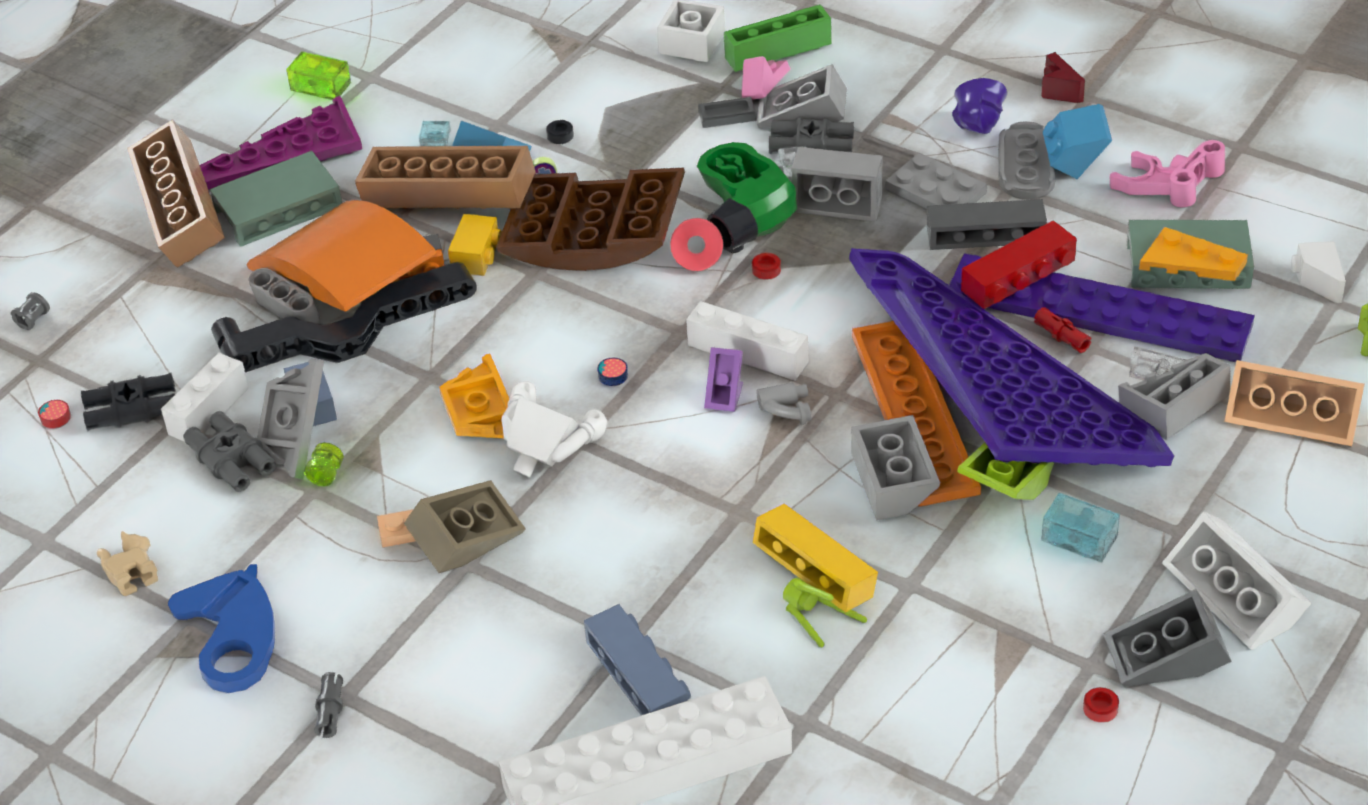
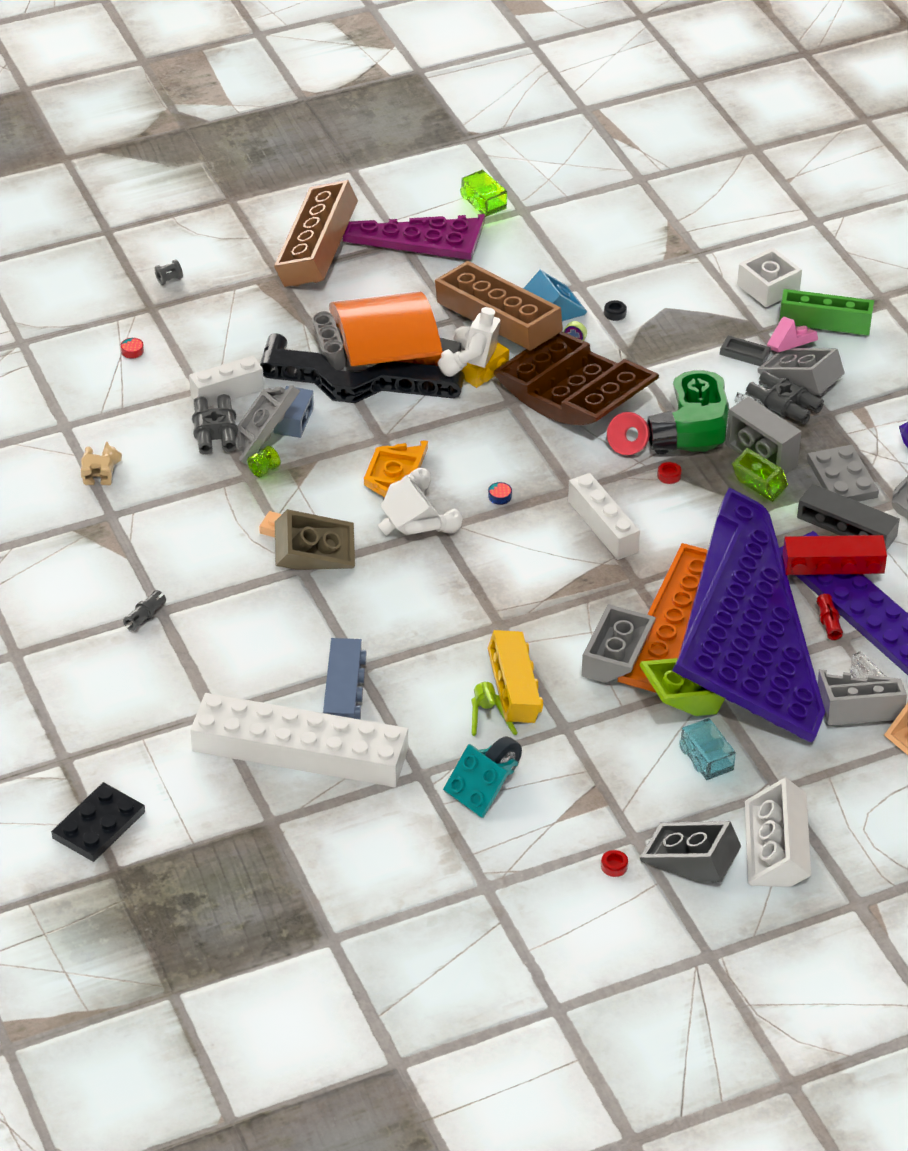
camera: 30 degrees right, 0 degrees up
(127, 401) = (179, 360): black pin -> none
(243, 624) = (140, 530): blue animal -> none
(277, 198) = (382, 268): sand green panel -> none
(434, 133) = (525, 270): clear light blue plate -> none
(469, 219) = (476, 341): none -> white torso
(723, 379) = (561, 535): medium lavender slope -> none
(777, 397) = (589, 563): light grey plant -> none
(865, 222) = (759, 474): none -> clear neon green brick
(886, 686) = (482, 773): none -> teal plate

